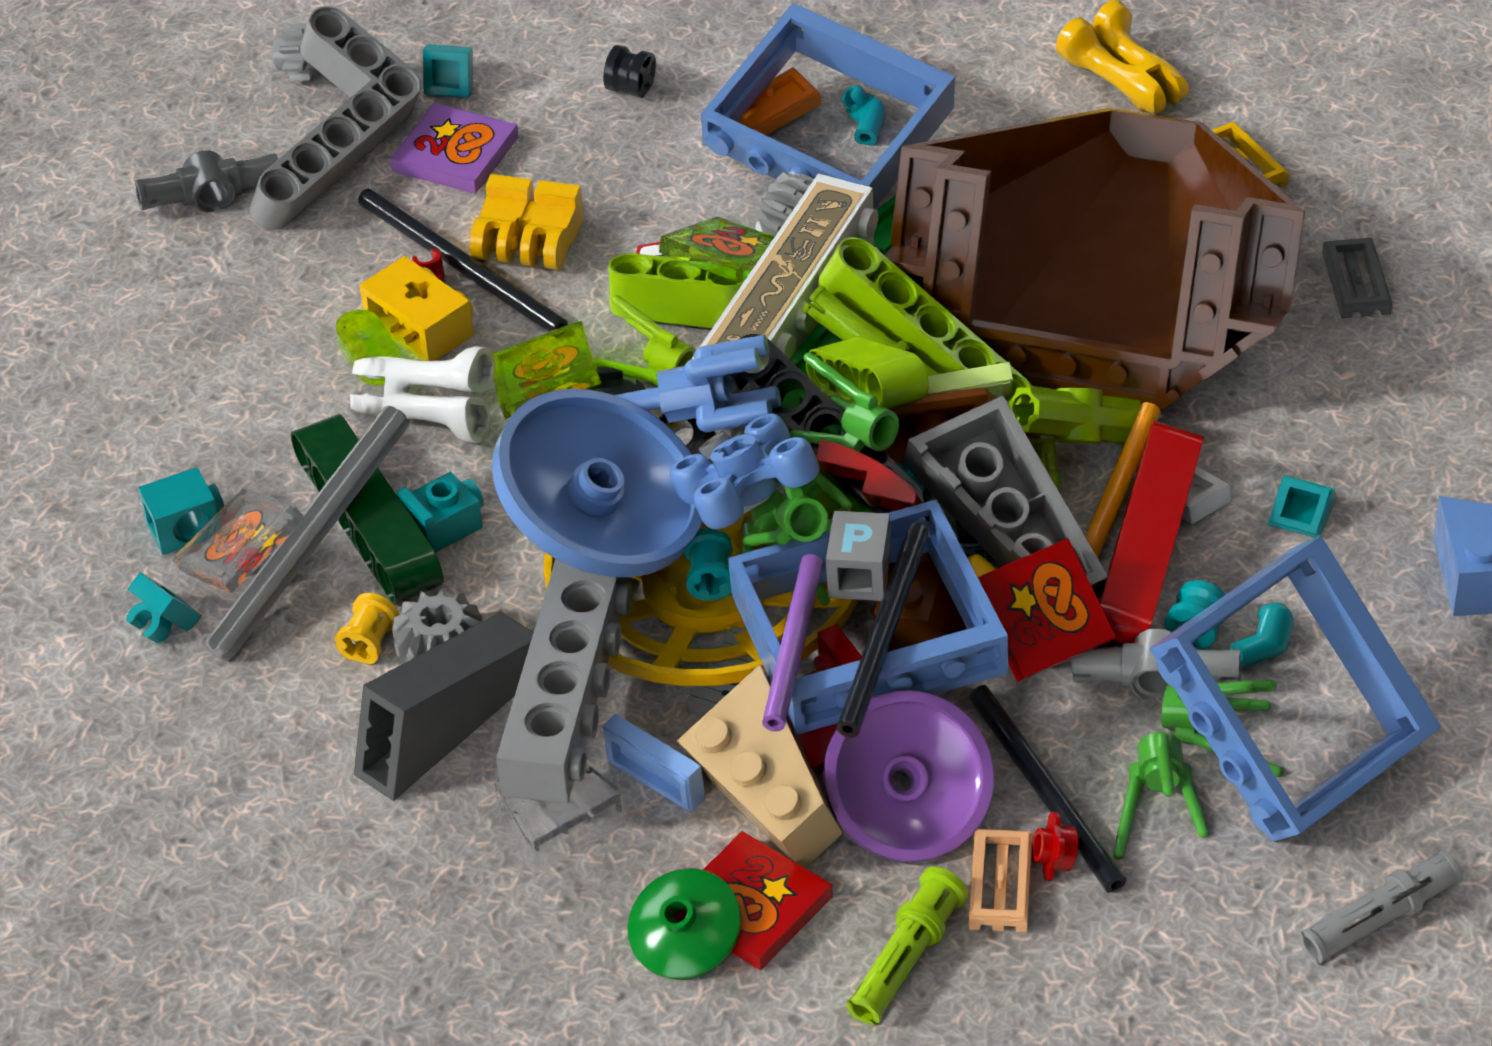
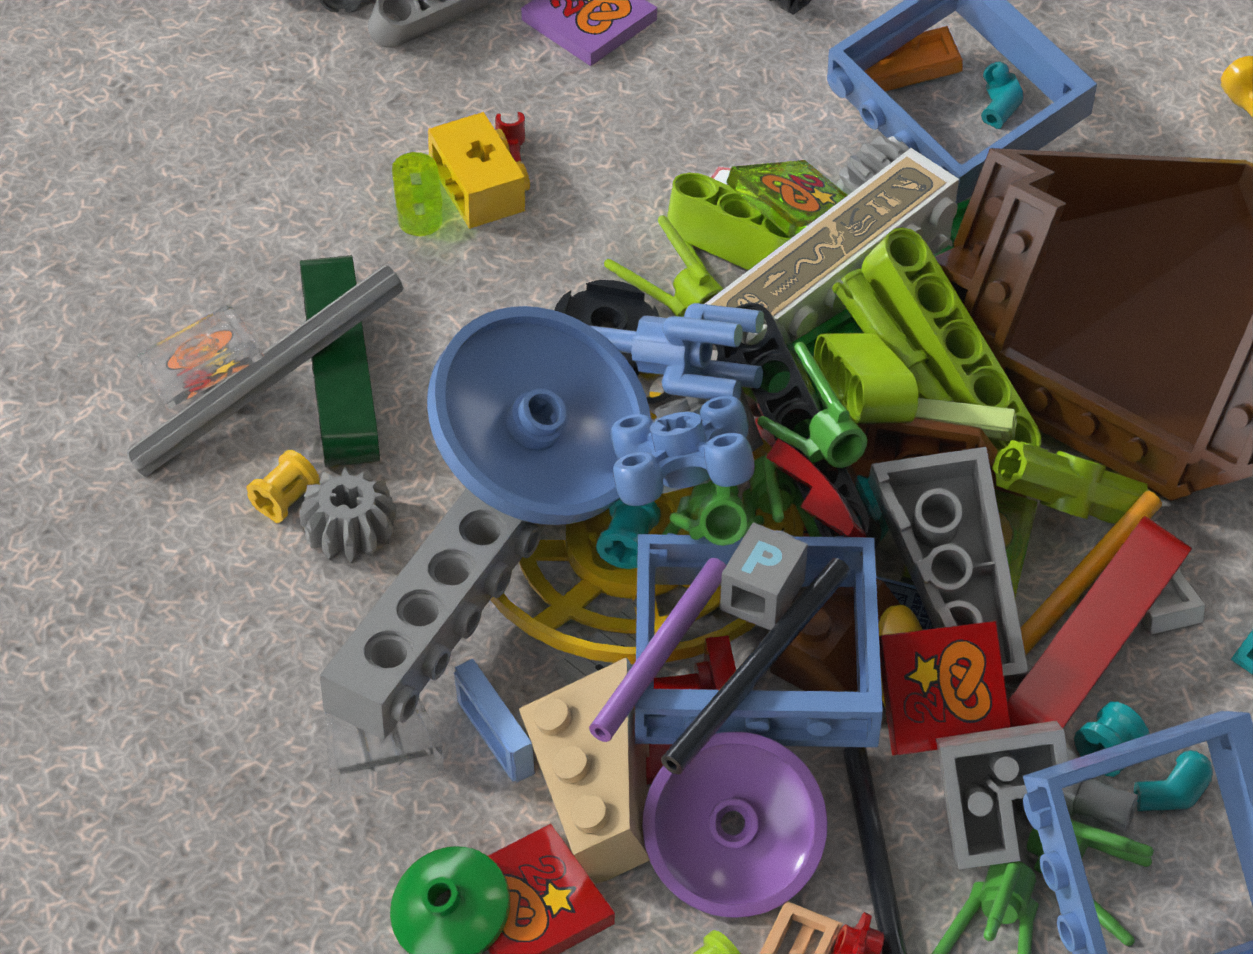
camera: 15 degrees right, 5 degrees up
(161, 606) = (101, 401): teal tile -> none
(179, 508) = (162, 304): teal brick -> none
(436, 702) = (307, 587): dark grey slope -> none
(445, 509) = (401, 385): teal brick -> none
(462, 261) = (546, 134): black piece -> none
(464, 415) = (489, 251): white piece -> none
(542, 219) = (621, 111): yellow legs -> none
(544, 365) = (569, 268): clear neon green tile -> none
(1108, 674) = (983, 776): none -> light grey brick

